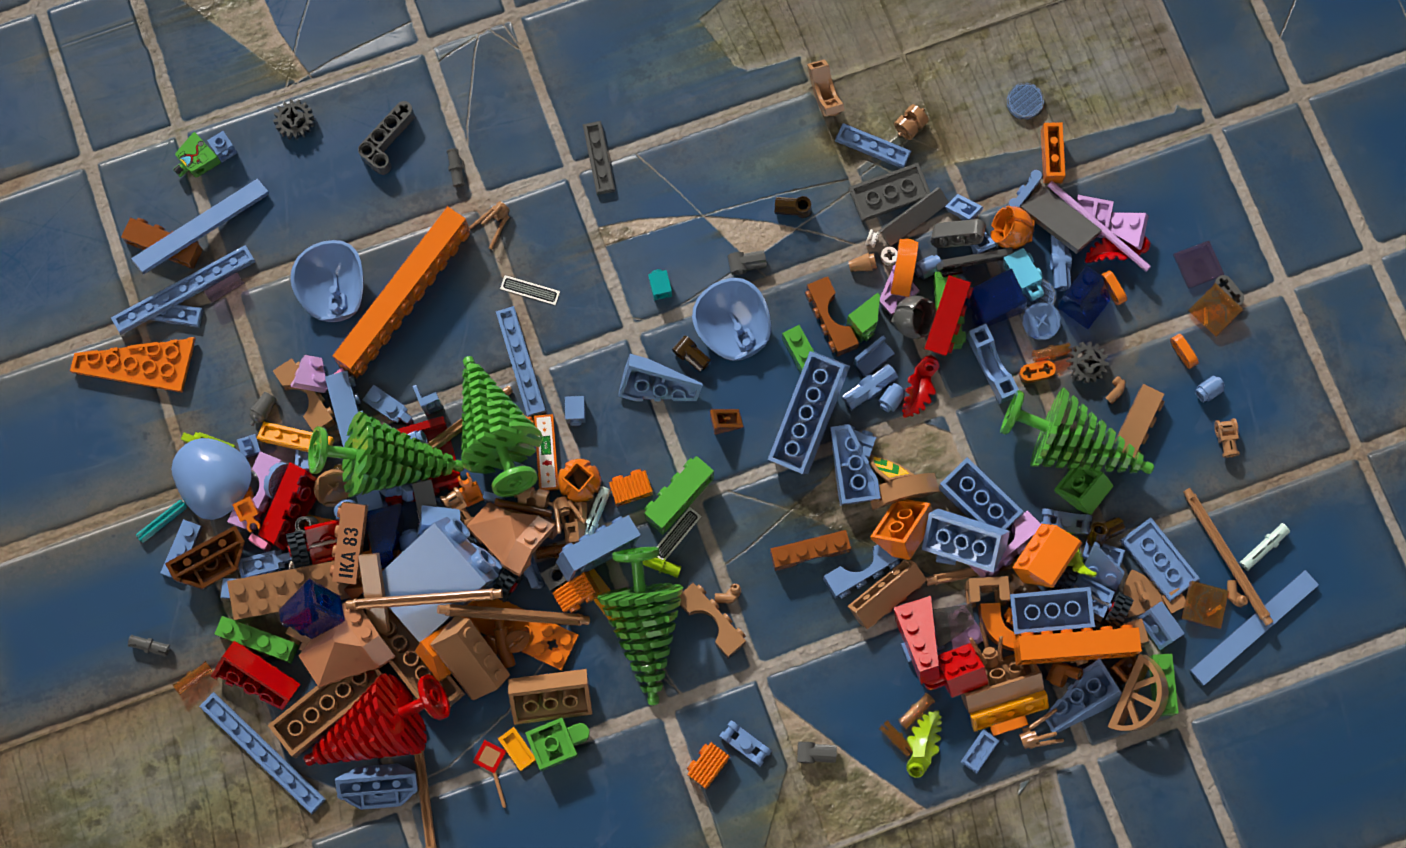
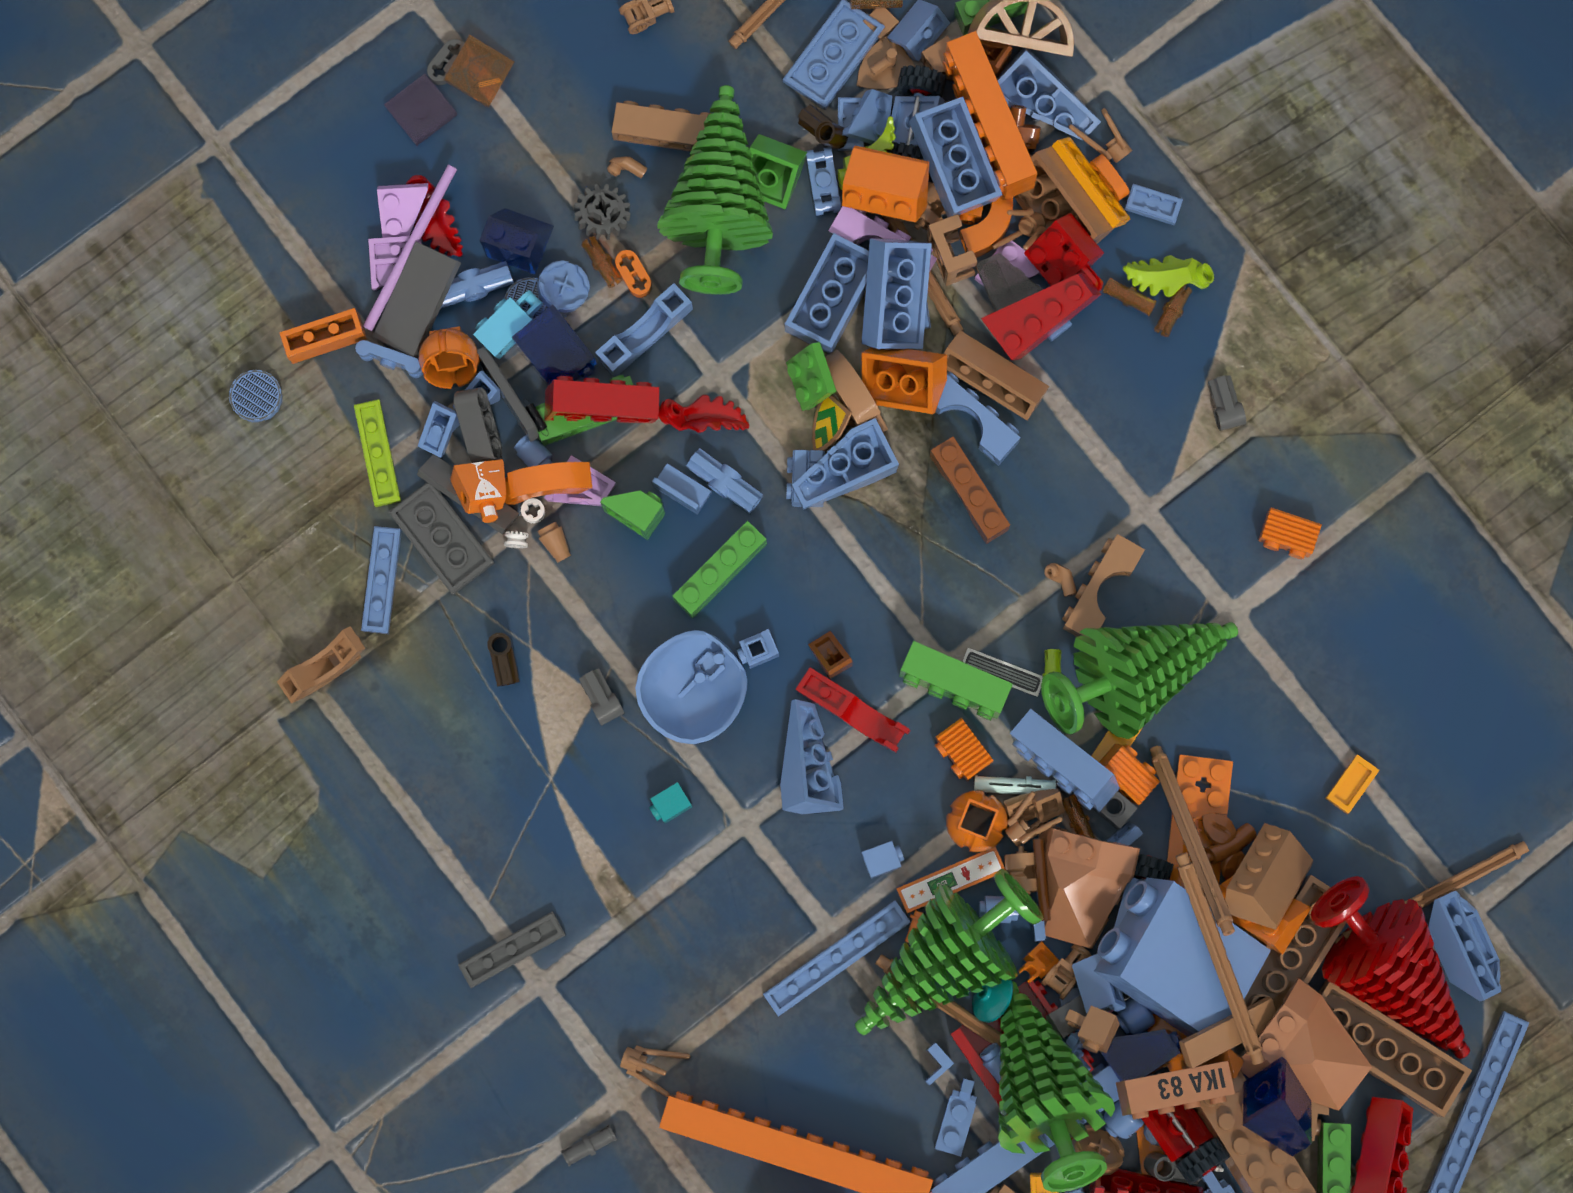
camera: 105 degrees left, 5 degrees up
(408, 504) = (1095, 1029): none -> medium nougat brick
(452, 449) = (992, 1001): none -> teal dish
(489, 758) = (1375, 816): piece -> none
(530, 290) = (731, 981): sticker -> none
(550, 696) = (1271, 763): medium nougat slope -> none
(557, 744) = (1327, 734): bright green brick -> none
(683, 422) = (851, 710): none -> red piece
(688, 351) = (751, 735): dark brown piece -> none
(745, 743) = (1244, 496): medium blue plate -> none
(748, 378) = (769, 647): none -> medium blue window
(808, 412) = (792, 543): medium blue brick -> none
(841, 337) = (618, 582): dark orange arch -> none
(892, 397) = (730, 447): medium blue brick -> none
(914, 119) = (335, 537): medium nougat wheel -> none
(914, 223) = (480, 487): none -> orange torso
(914, 317) = (613, 448): dark grey piece -> none
(924, 465) = (810, 376): none -> bright green plate
(961, 167) = (377, 453): none -> lime tile
(1114, 288) = (489, 205): orange beam -> none
(1184, 351) = (547, 95): orange beam -> none
(1210, 389) = (589, 50): medium blue brick -> none

